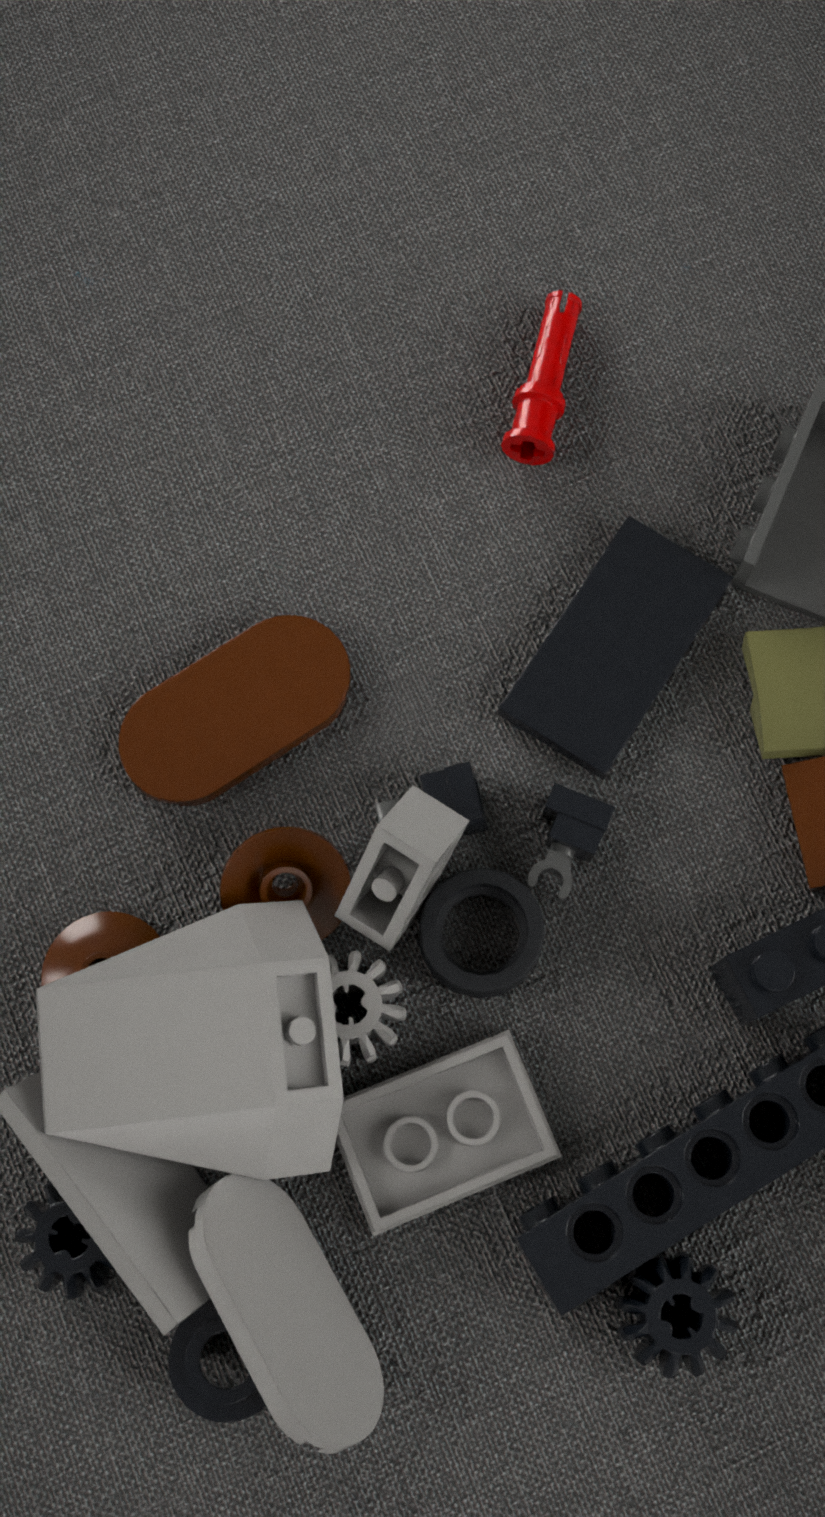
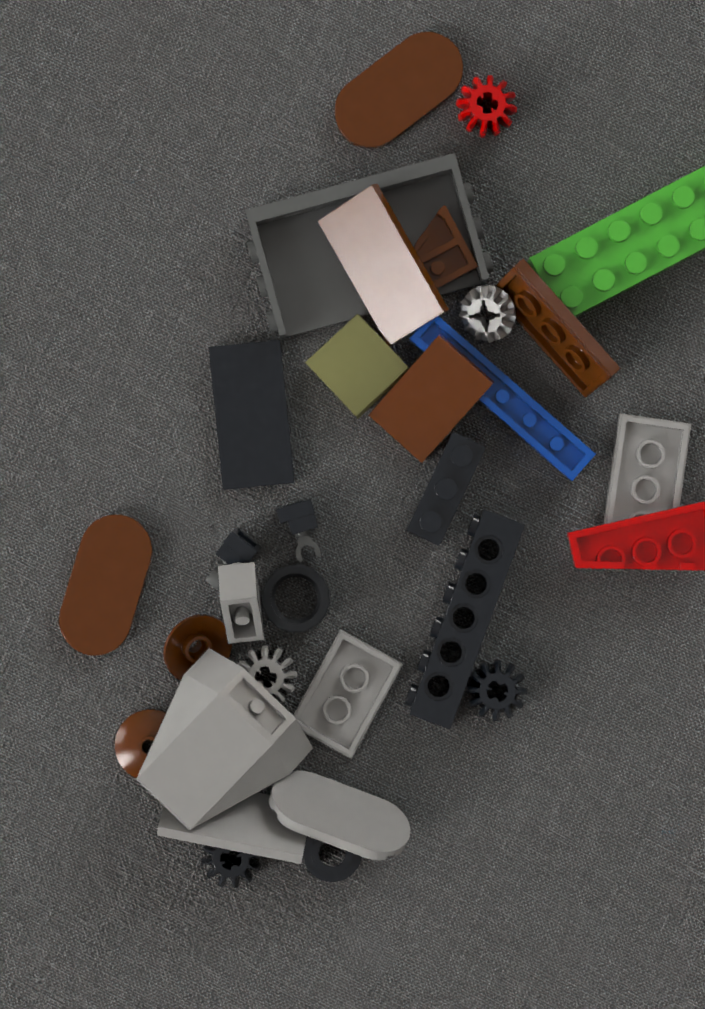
camera: 35 degrees left, 15 degrees up
(539, 400) = (120, 320): red pin -> none

